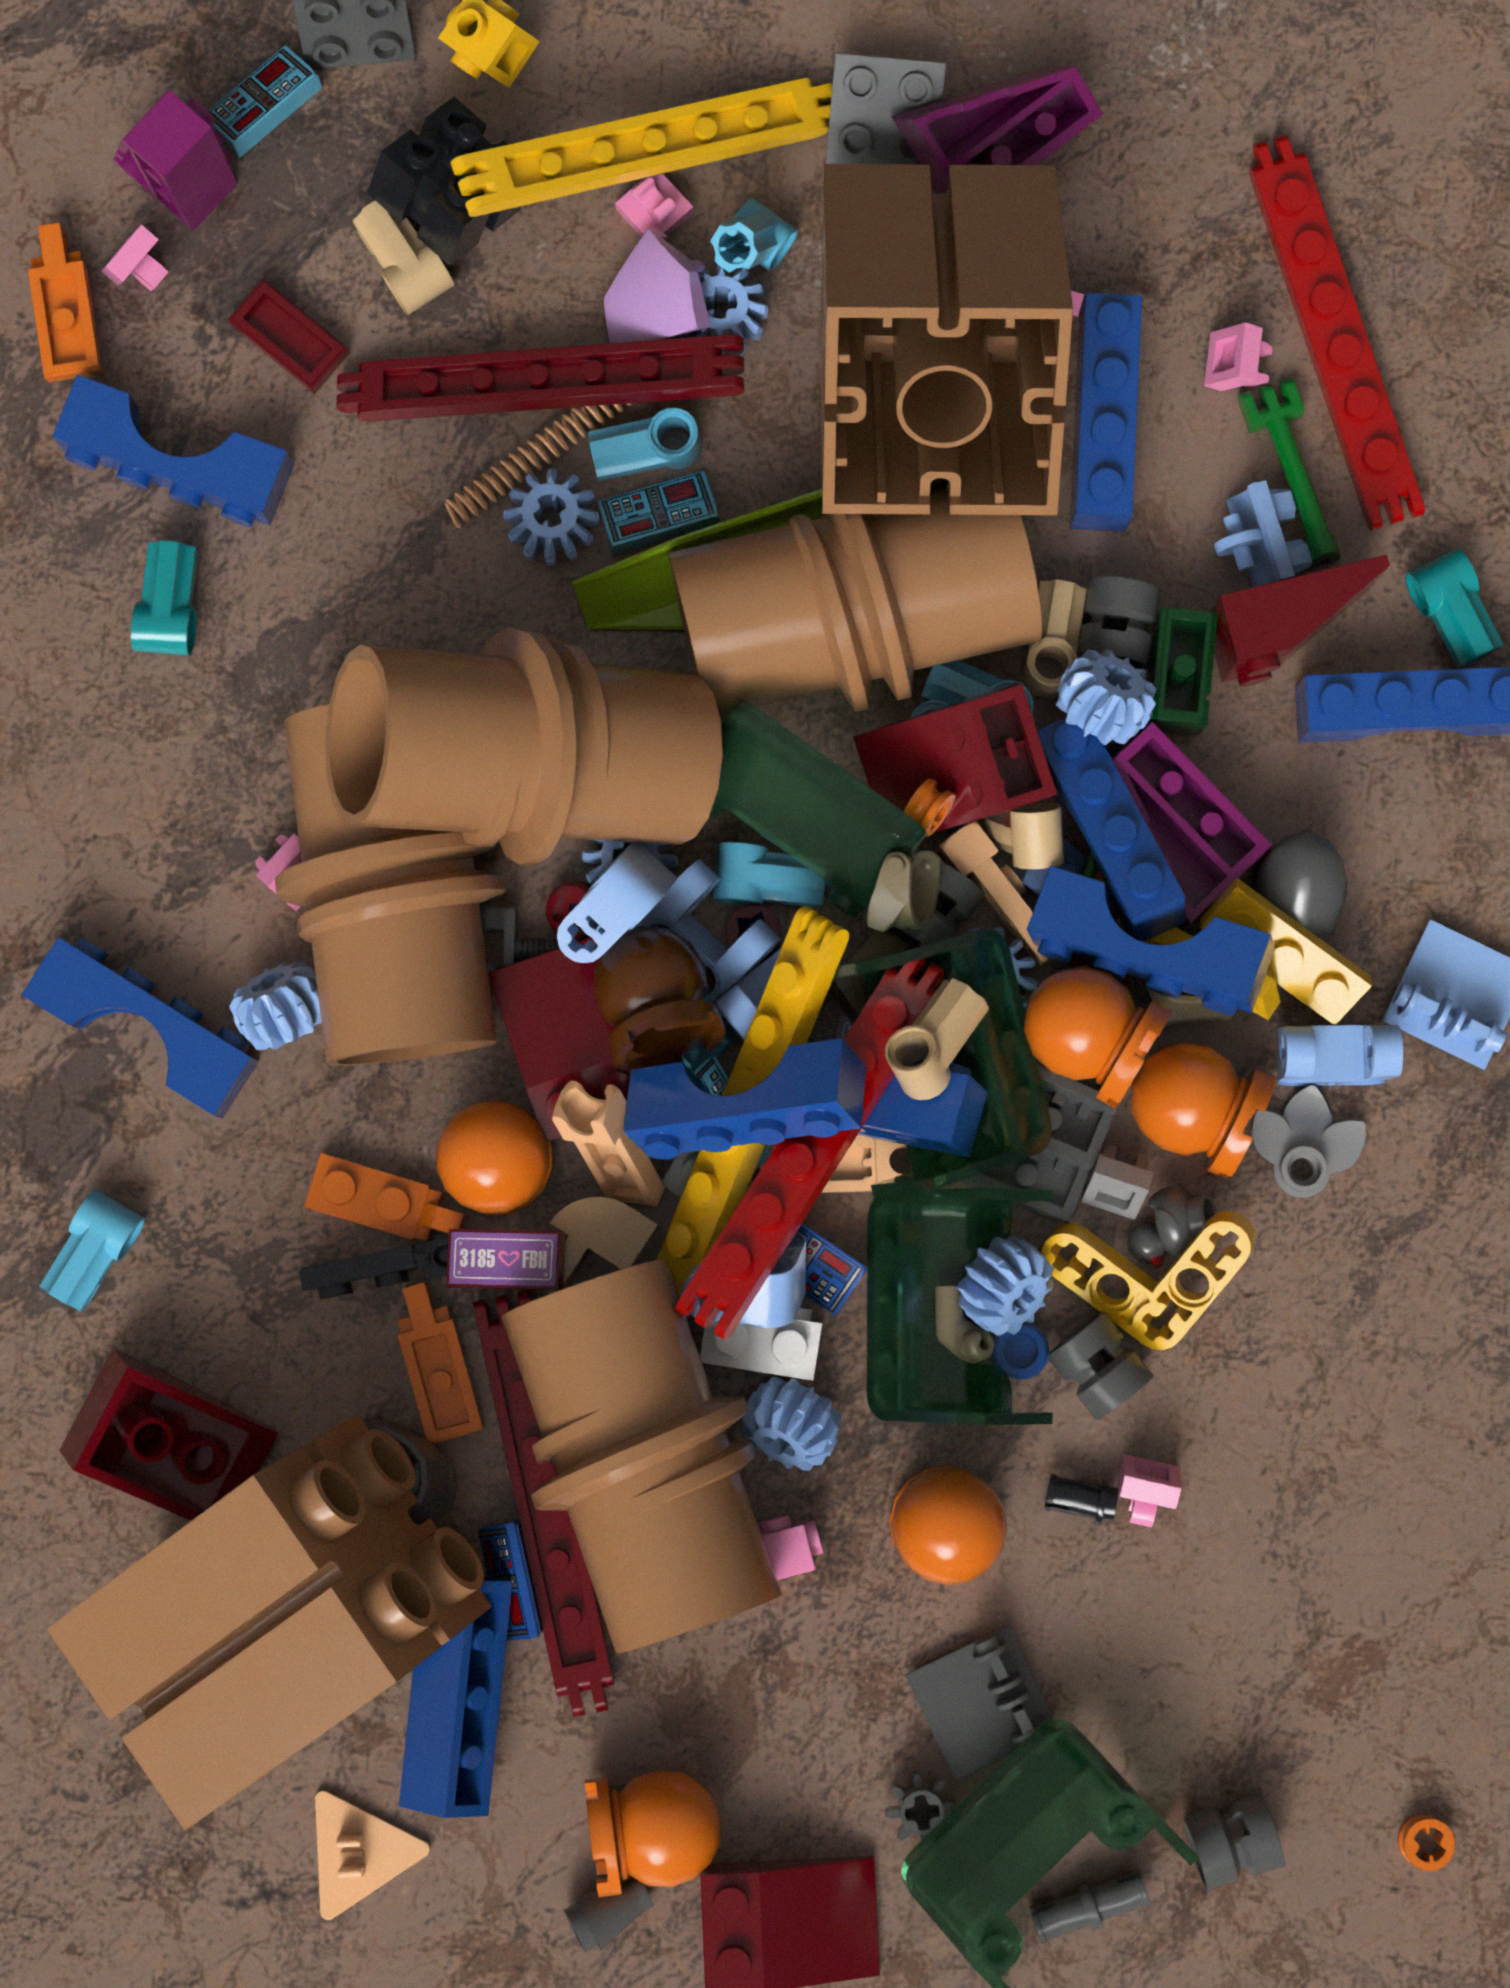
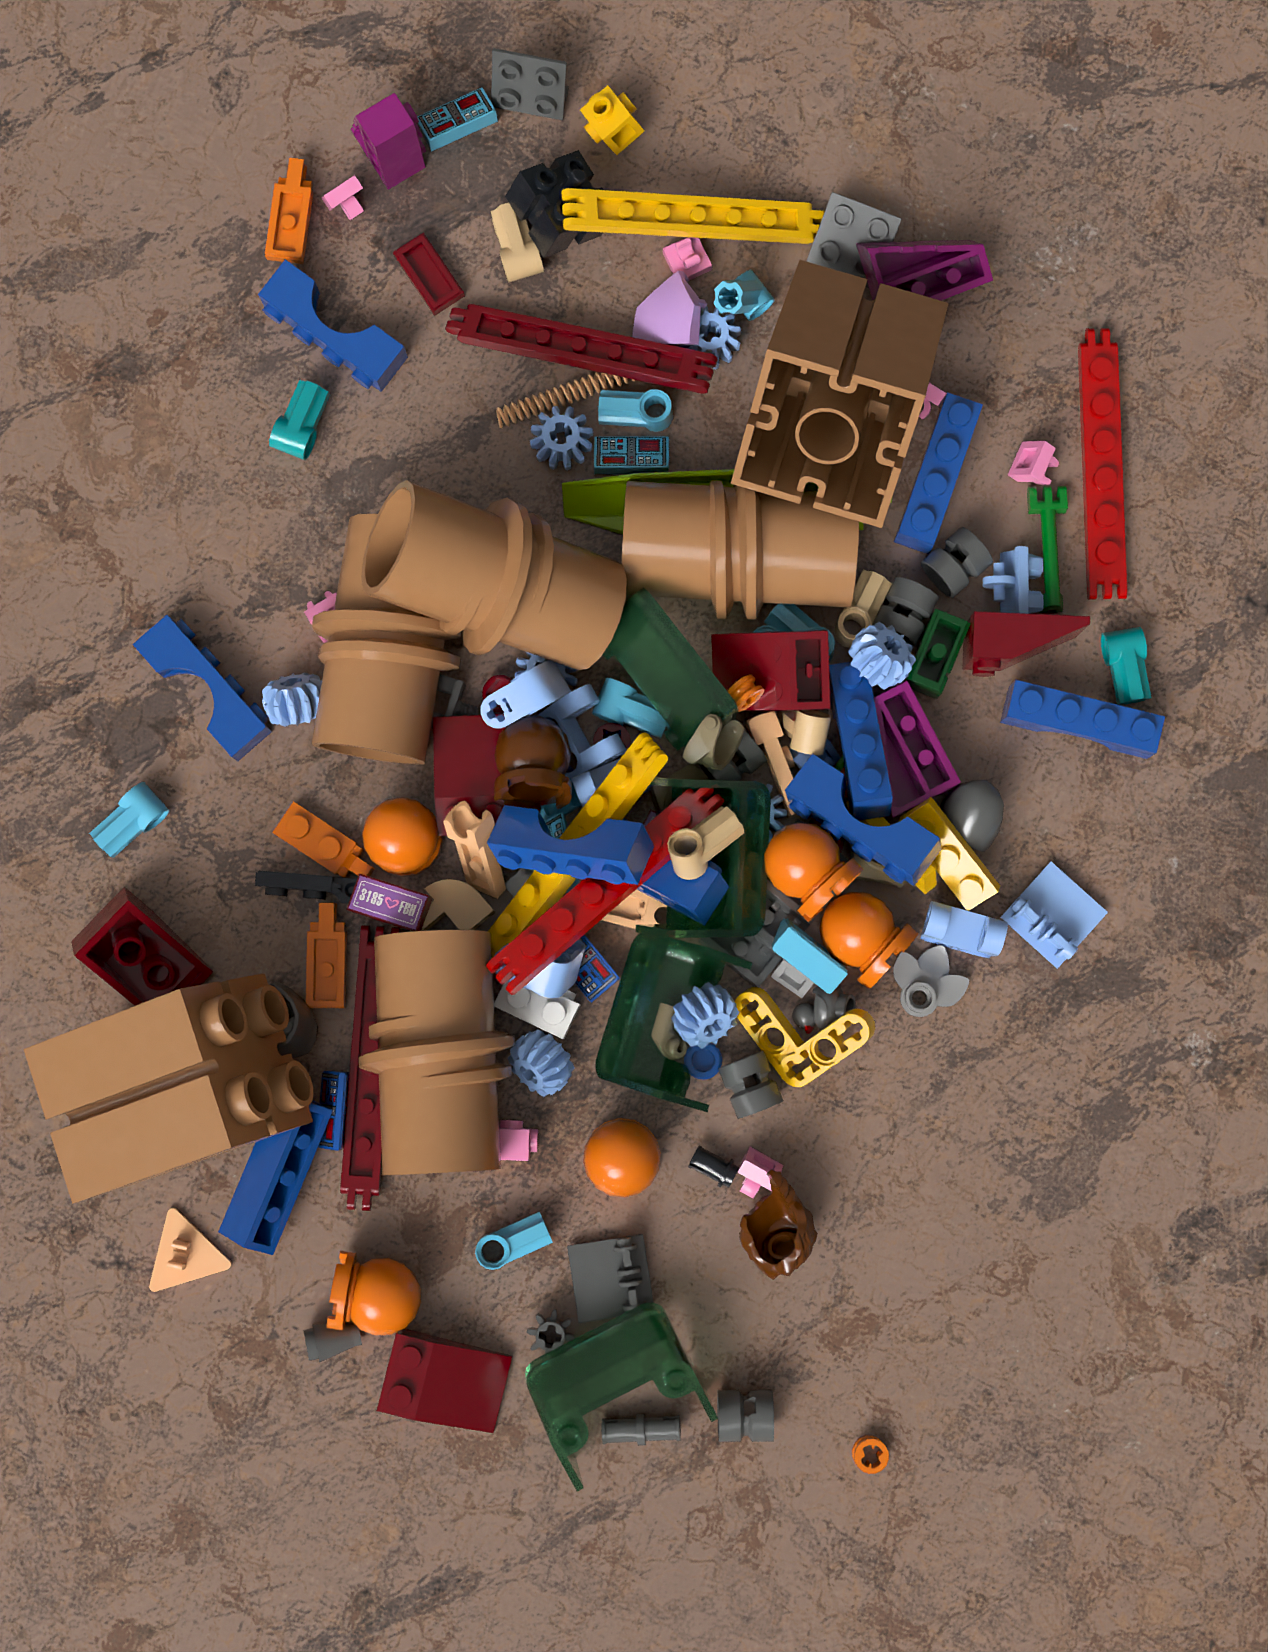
camera: 20 degrees right, 0 degrees up
(832, 1687) = (517, 1239): none -> medium azure piece
(1128, 1157) = (808, 956): none -> medium azure slope
(1160, 548) = (945, 569): none -> dark grey wheel
(1202, 1562) = (778, 1230): none -> reddish brown hair

